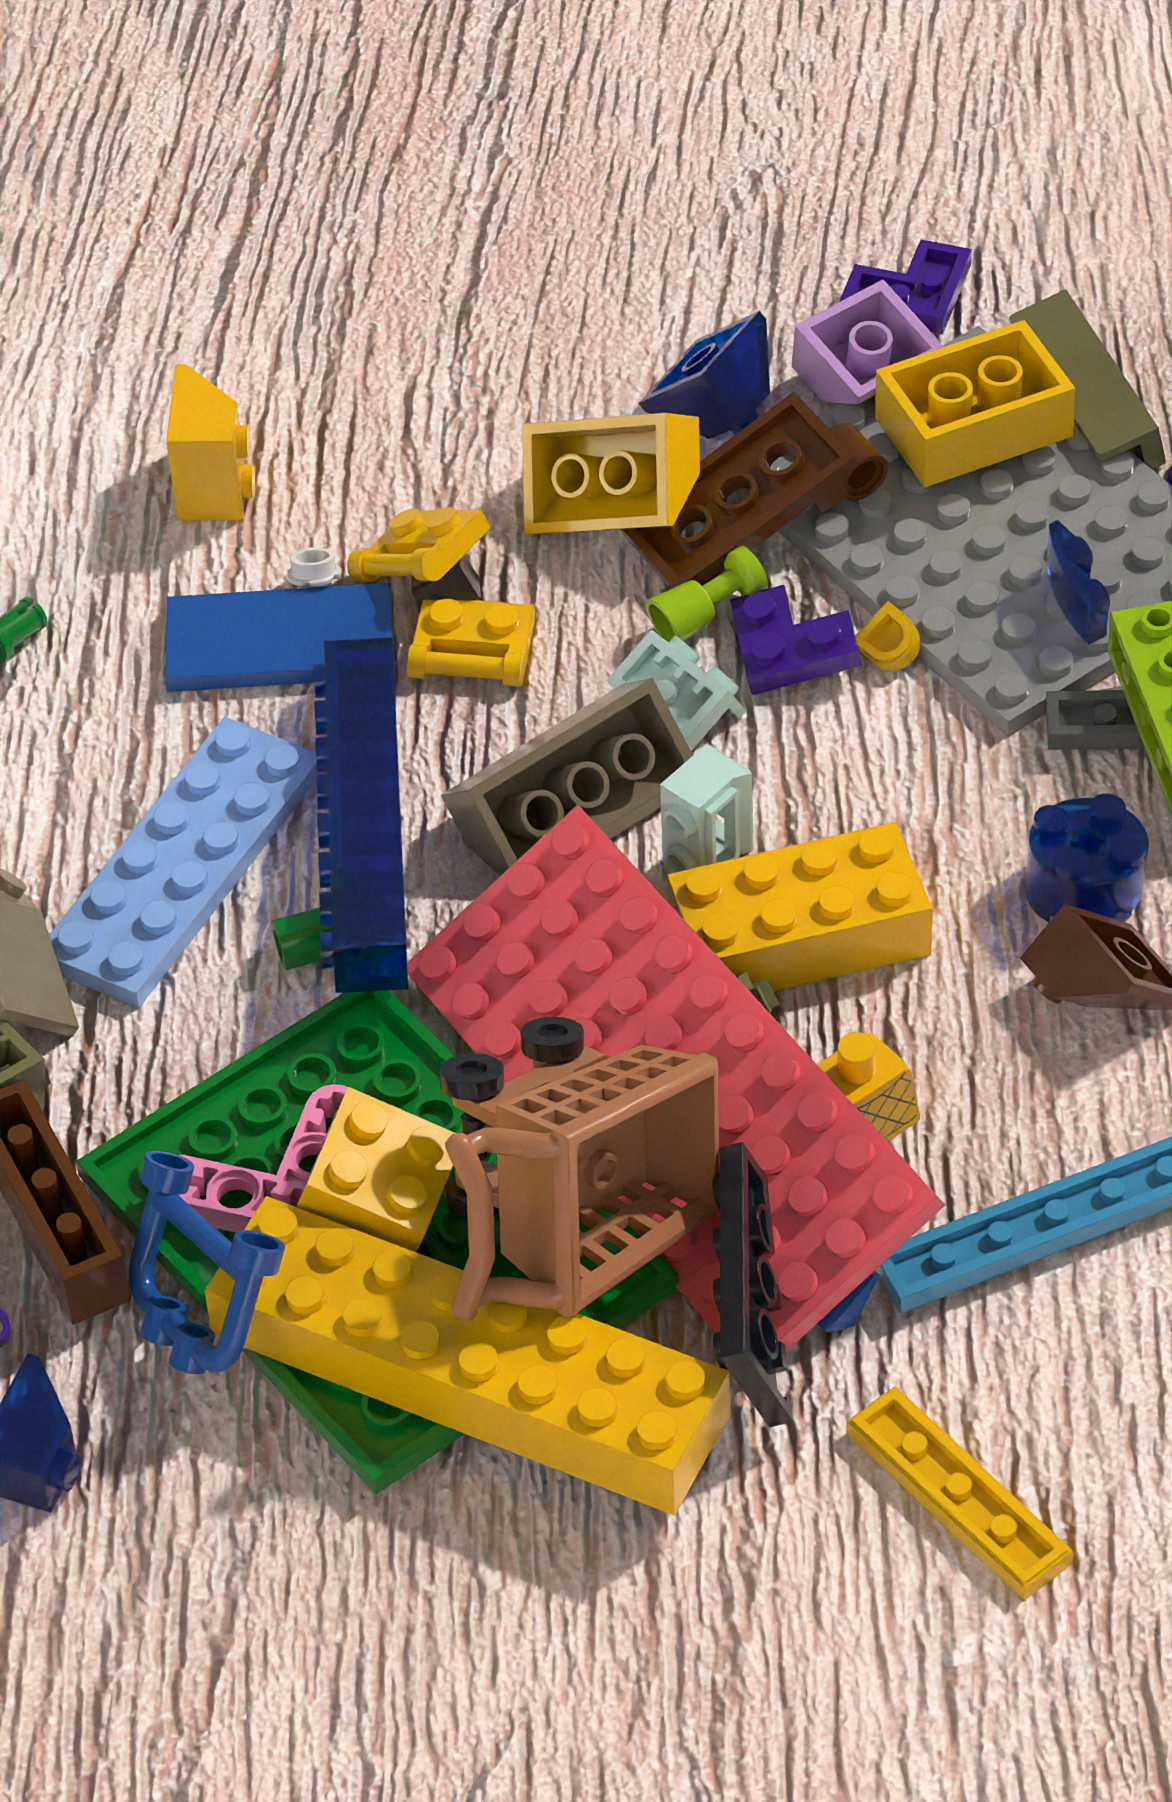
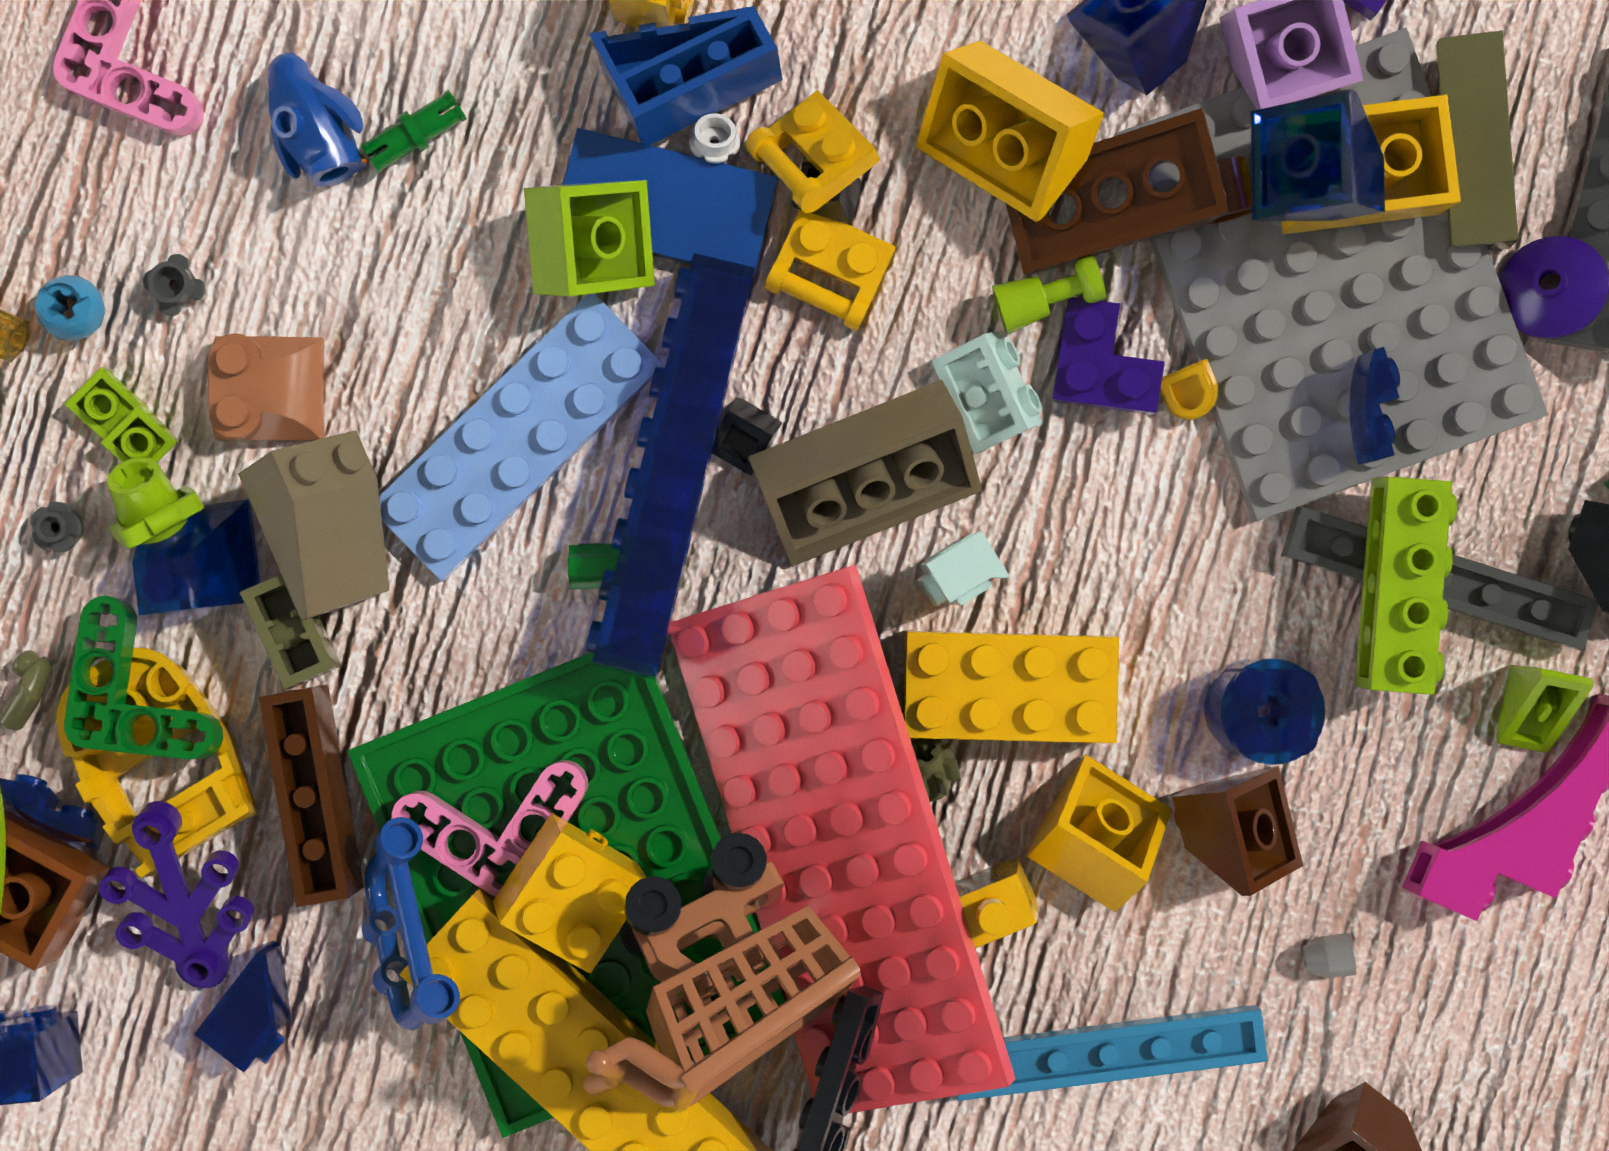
camera: 15 degrees right, 40 degrees up
(208, 659) = (589, 237): none -> lime slope
(259, 522) = (687, 69): none -> blue wedge
(422, 800) = (744, 433): none -> black slope
(916, 379) = (1315, 161): none -> clear blue slope
(955, 1023) = (1101, 834): none -> yellow slope

